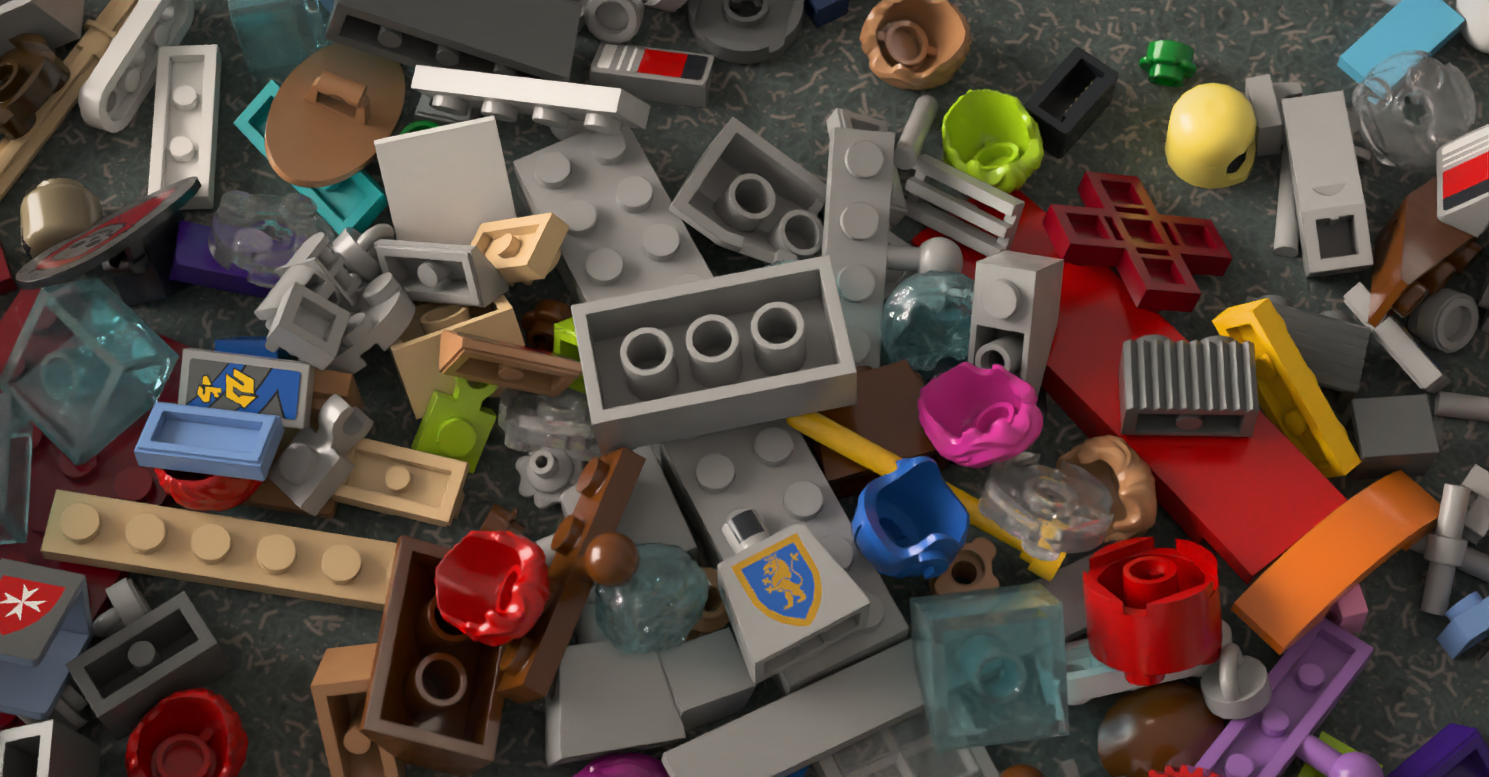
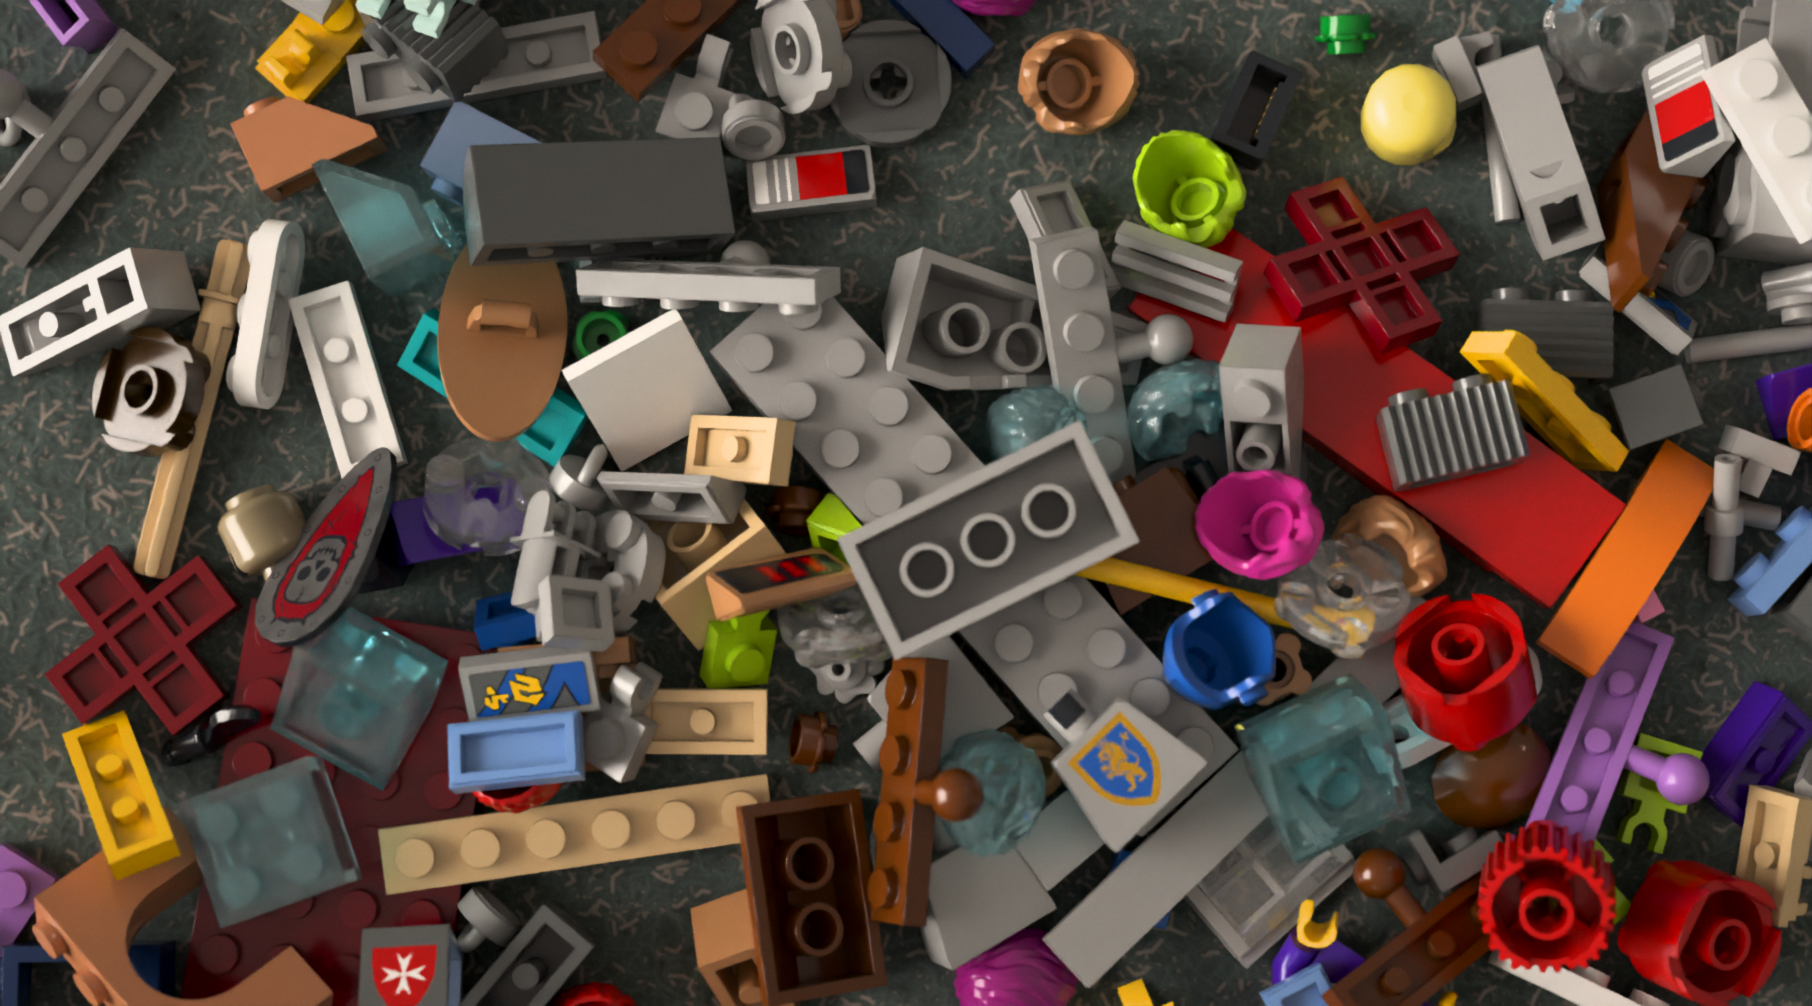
camera: 15 degrees left, 20 degrees up
(493, 586) = (847, 839): red hair -> none
(915, 132) = (1108, 197): light grey piece -> none
(1236, 685) = (1557, 719): light grey tile -> none

